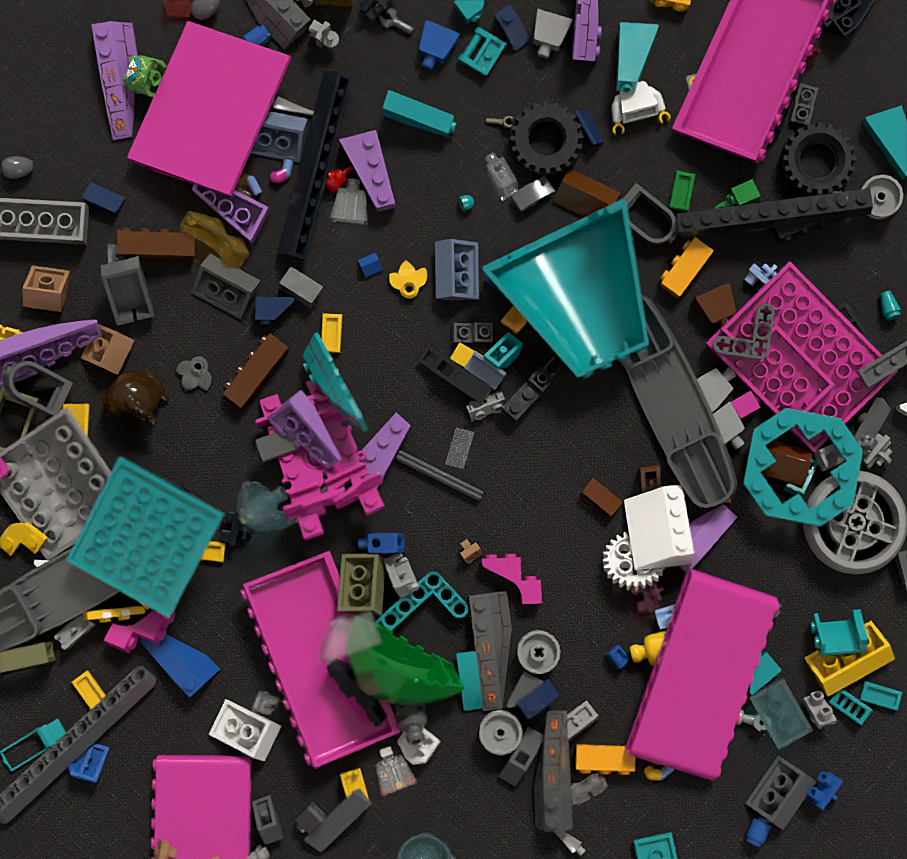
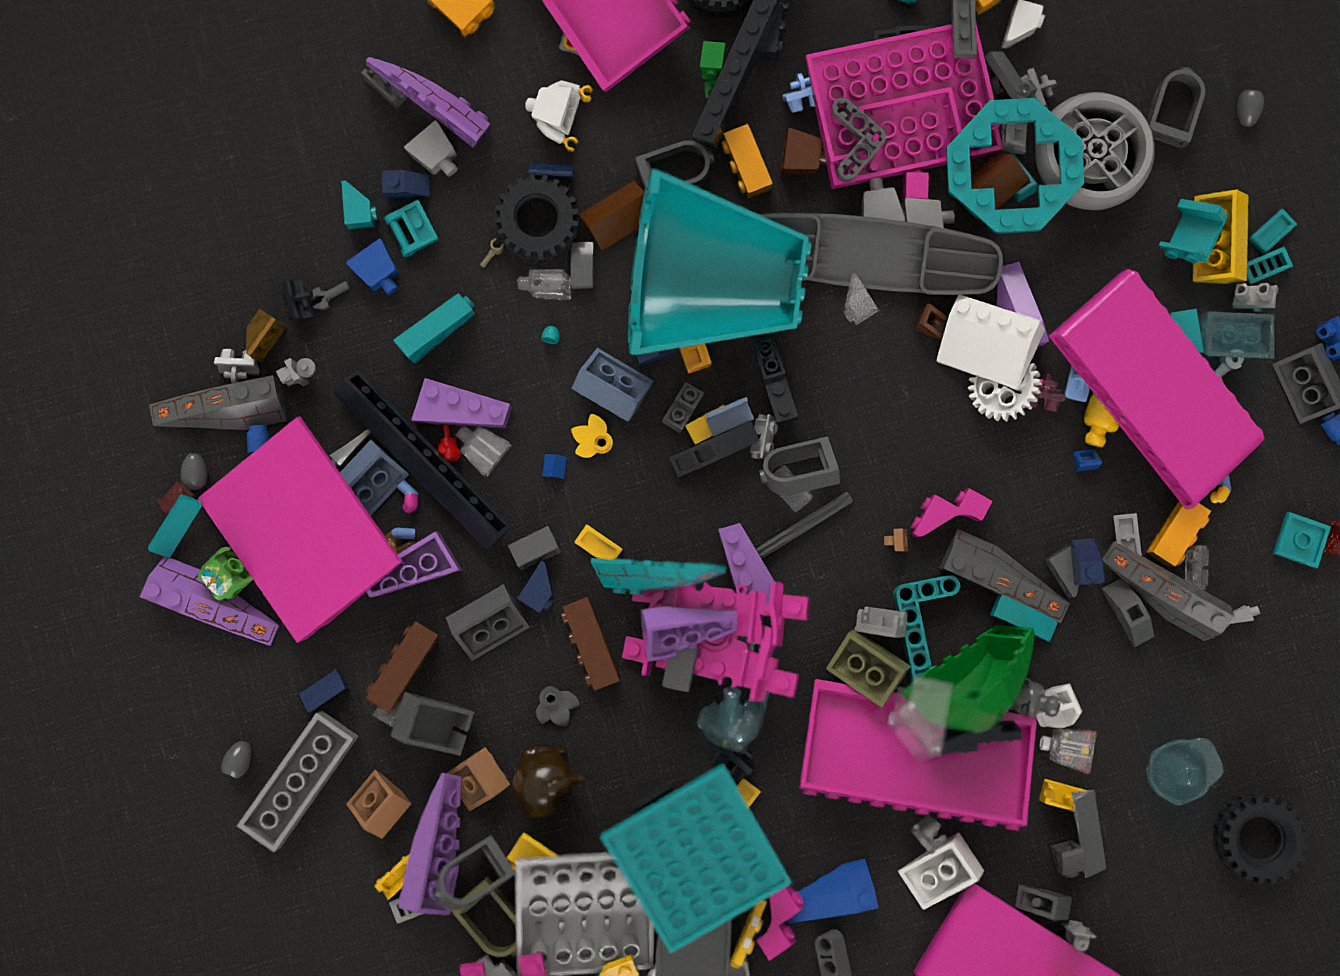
camera: 60 degrees left, 0 degrees up
(157, 17) = (175, 526): none -> teal tile
(212, 232) = (427, 602): clear yellow arch -> none
(388, 543) = (842, 612): blue torso -> none
(489, 436) = (805, 482): none -> dark grey window
(500, 720) = (1105, 612): light grey wheel -> none
(504, 351) = (722, 386): teal slope -> none
(538, 663) = (1050, 531): light grey wheel -> none
(601, 497) = (921, 380): reddish brown slope -> none
(631, 414) = (858, 302): none -> clear slope
(634, 48) = (503, 81): teal slope -> none
(682, 191) = (669, 120): green tile -> none

